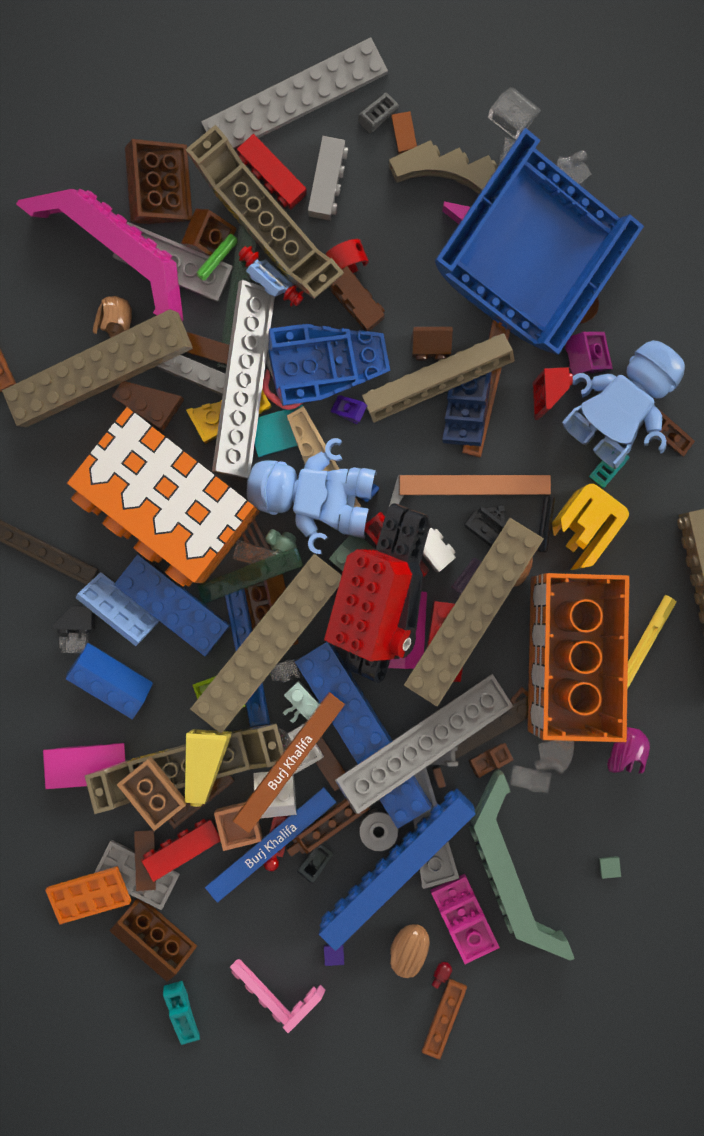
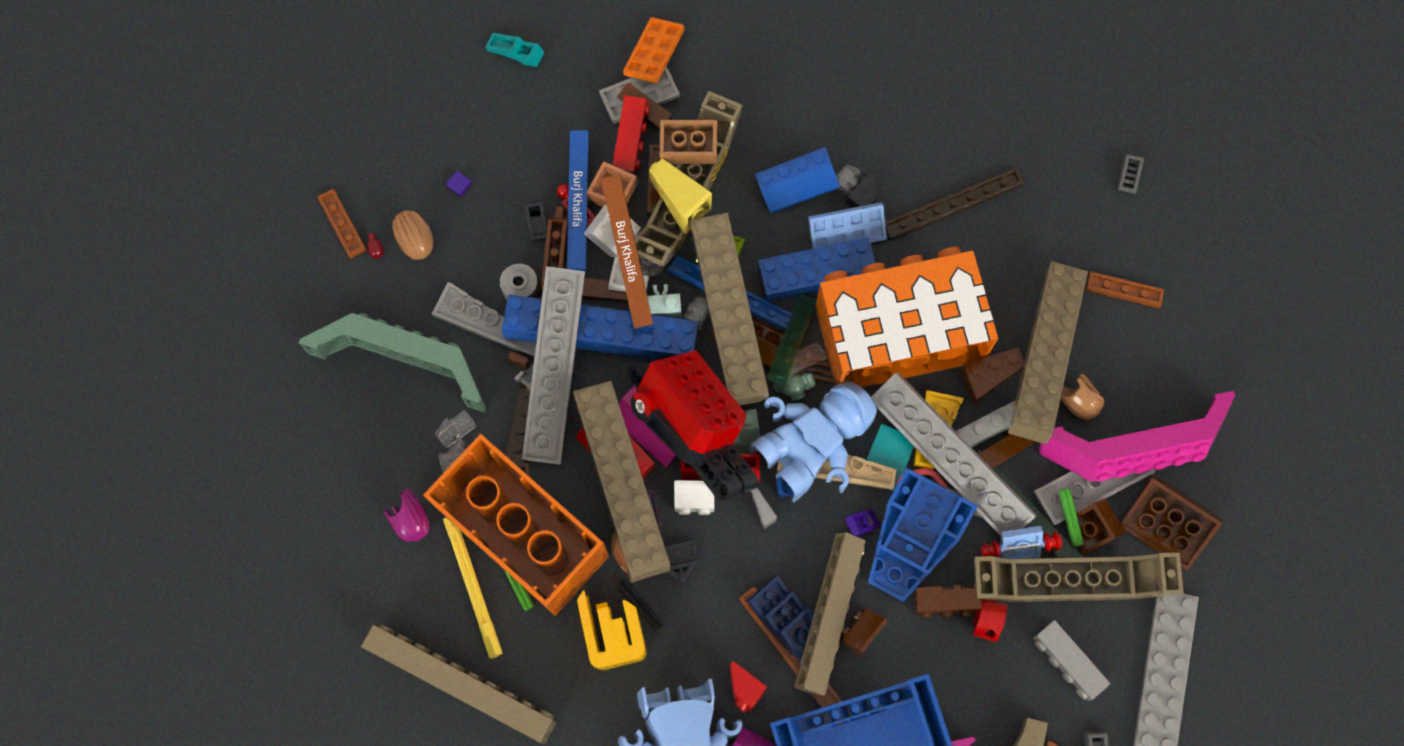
camera: 130 degrees right, 15 degrees down
(69, 765) = (758, 111): dark pink slope -> none
(153, 939) = (583, 70): reddish brown slope -> none
(267, 998) = (466, 113): bright pink bracket -> none
(271, 172) = (1111, 619): red brick -> none
(396, 869) = (480, 273): blue brick -> none
(464, 919) = (398, 295): dark pink slope -> none
(474, 485) = (718, 572): nougat tile -> none
(490, 760) = (496, 411): reddish brown slope -> none
(600, 481) = (633, 680): teal slope -> none
(609, 867) = (336, 433): sand green tile -> none

